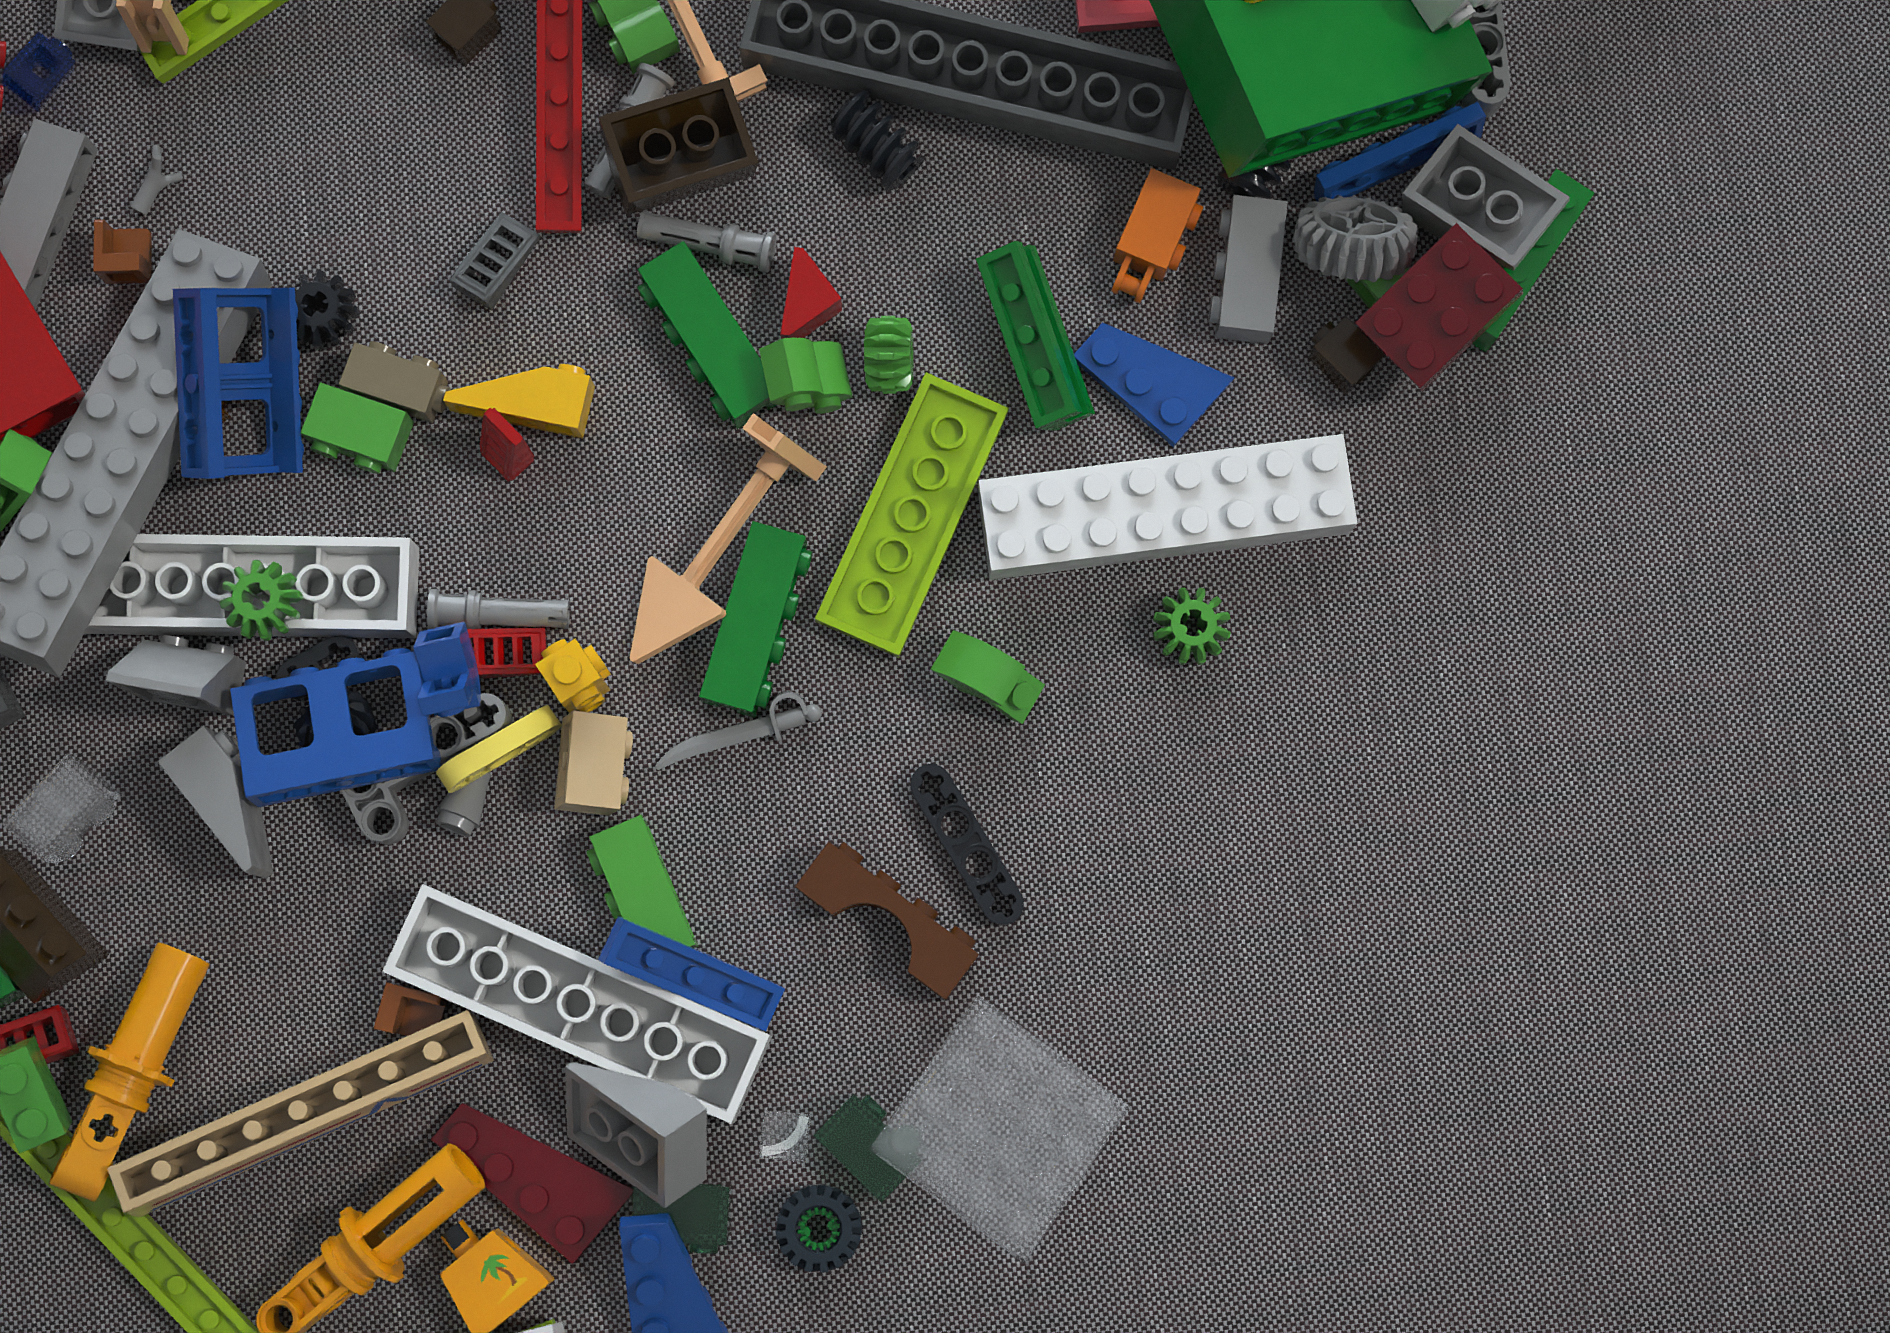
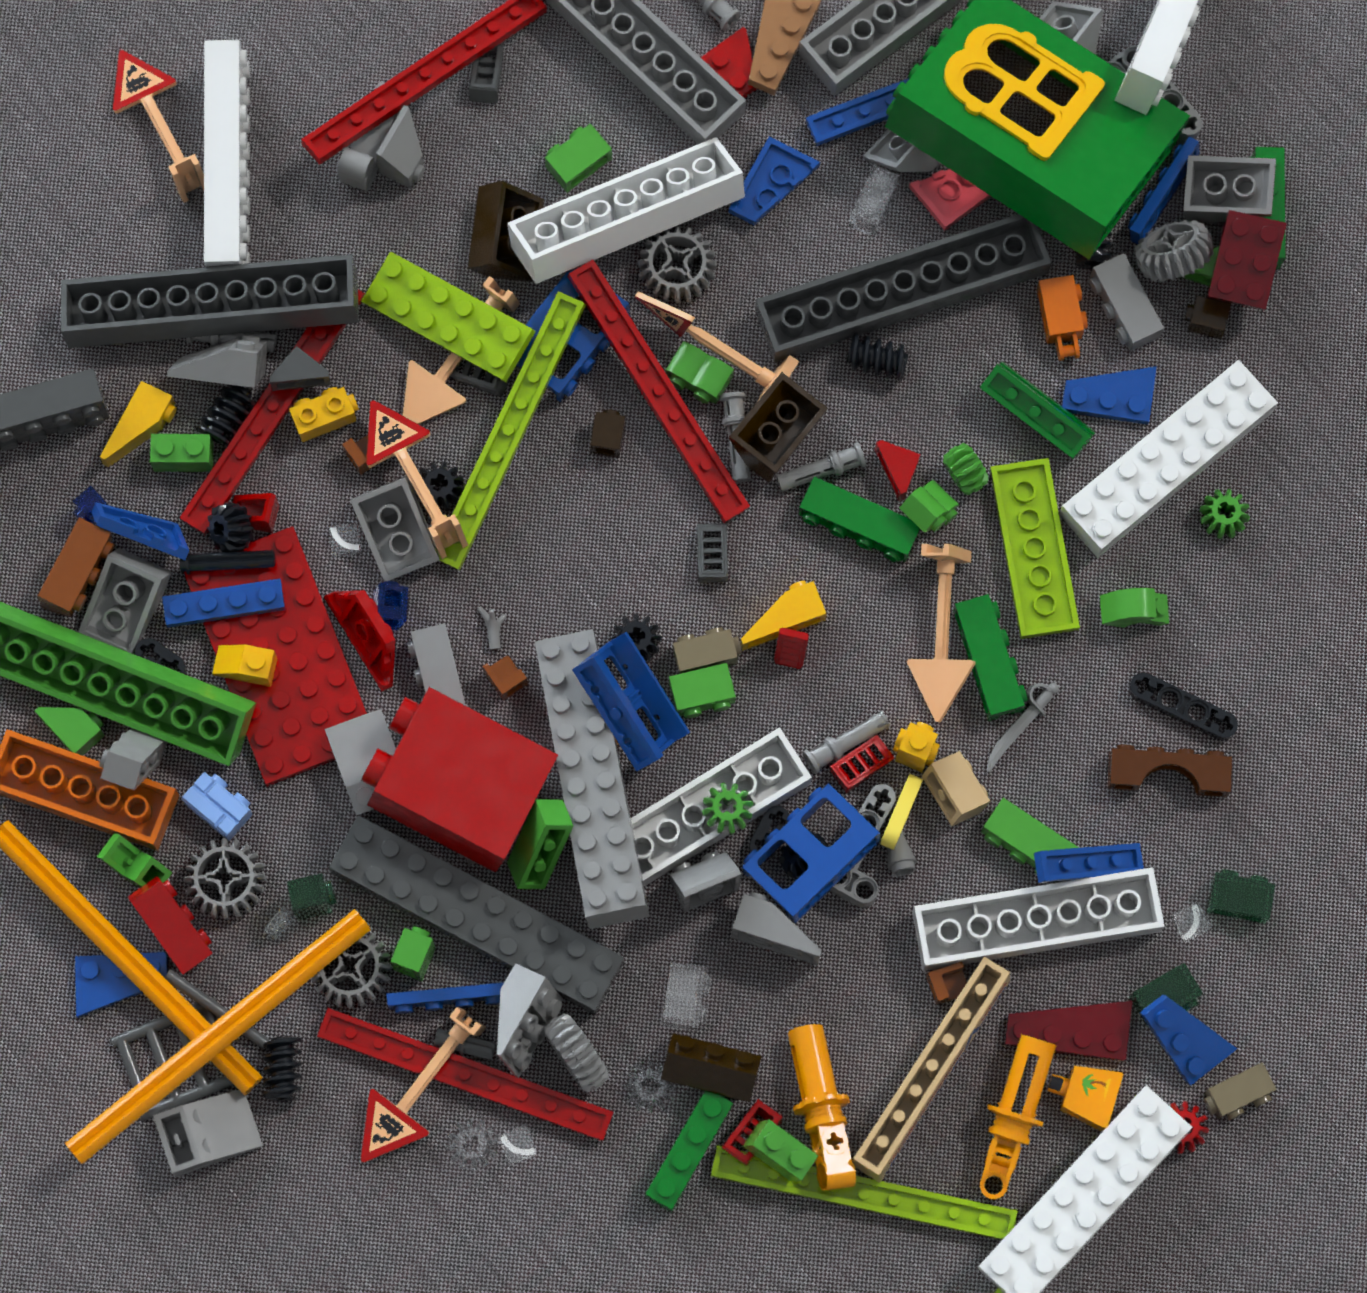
camera: 30 degrees left, 5 degrees down
(447, 670) = (850, 783): blue brick -> none
(638, 1129) = (1115, 961): light grey slope -> none
(794, 1233) = (1253, 946): black bush -> none
(1000, 1128) = (1304, 841): clear plate -> none

